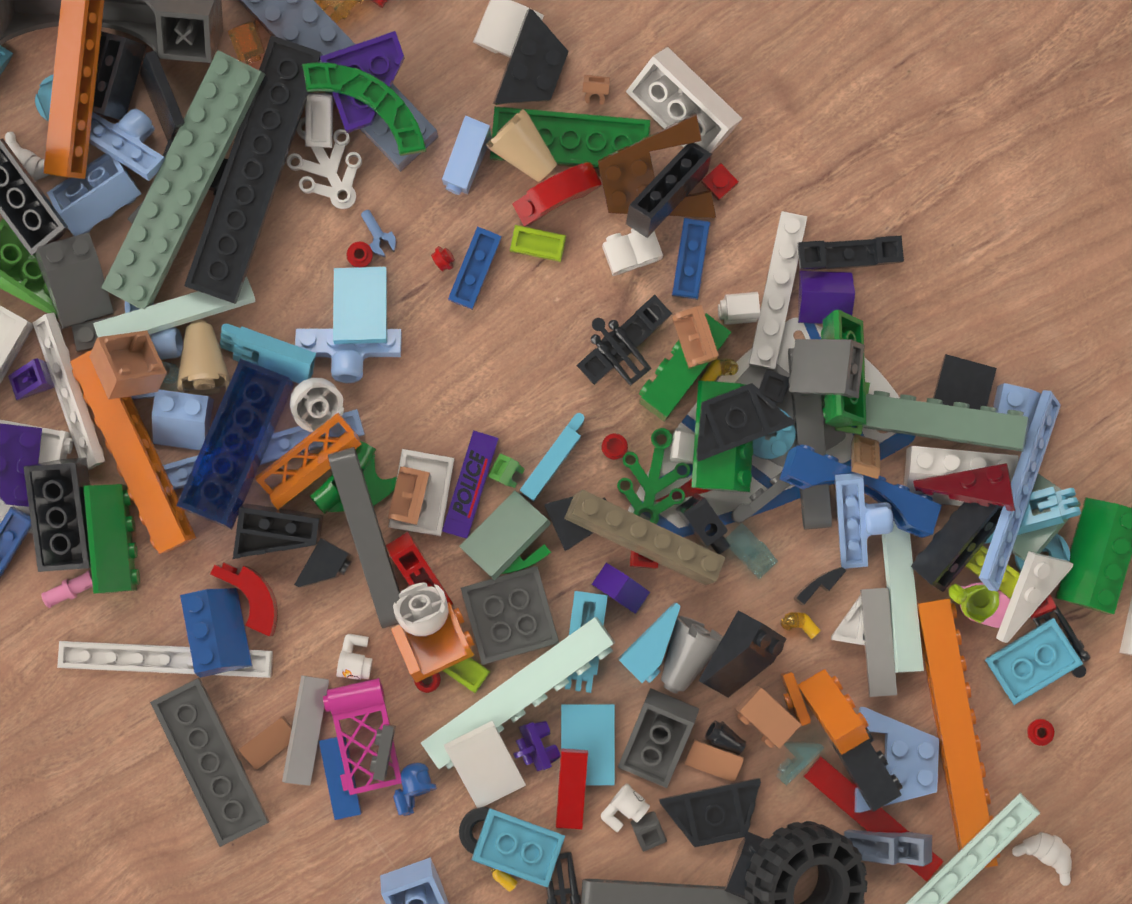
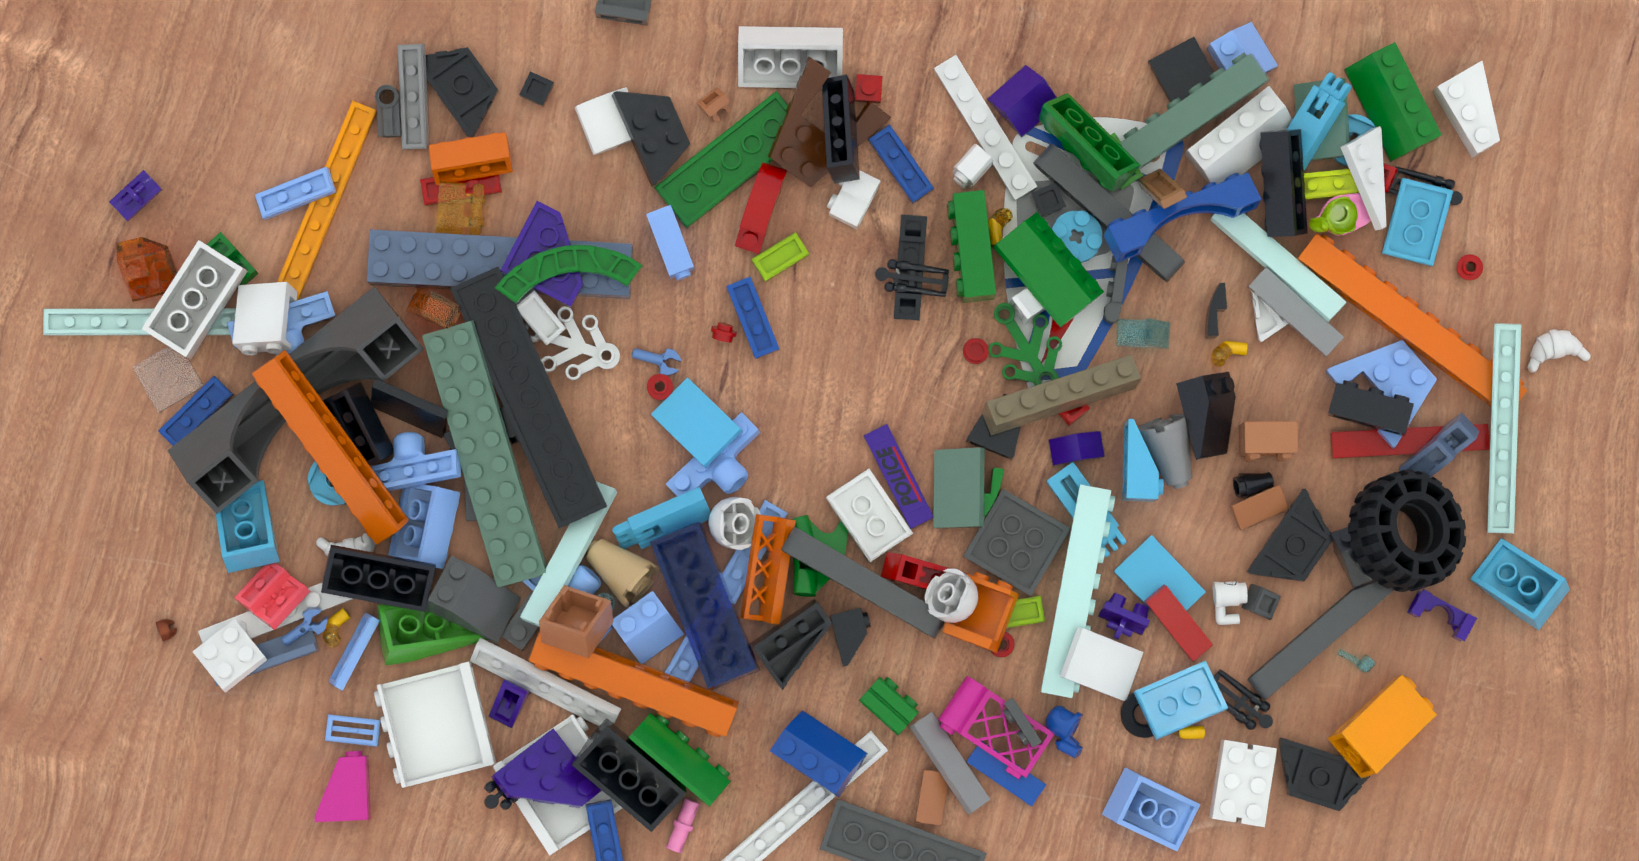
camera: 45 degrees left, 0 degrees up
(261, 599) = (822, 697): red arch -> none
(301, 645) = (889, 705): none -> green brick
(354, 665) = (938, 684): white piece -> none
(408, 495) = (864, 525): nougat hinge -> none
(504, 469) = (913, 442): bright green tile -> none
(524, 147) = (706, 197): tan cone -> none
(553, 458) = (941, 401): medium azure hinge -> none
(658, 738) = (1205, 528): dark grey slope -> none
(695, 336) = (962, 217): nougat hinge -> none
(697, 515) = (1083, 341): black torso -> none
(736, 420) = (1047, 249): black wing -> none
(794, 698) = (1273, 408): orange plate -> none
(803, 754) = (1317, 442): clear light blue slope -> none
(826, 367) = (1075, 152): dark grey panel -> none
(834, 711) = (1311, 389): orange brick -> none
(850, 254) = (1012, 52): black slope -> none
(858, 520) = (1200, 239): light blue plate -> none
(979, 485) = (1261, 134): dark red wing -> none
(1022, 486) = (1293, 109): light blue tile -> none

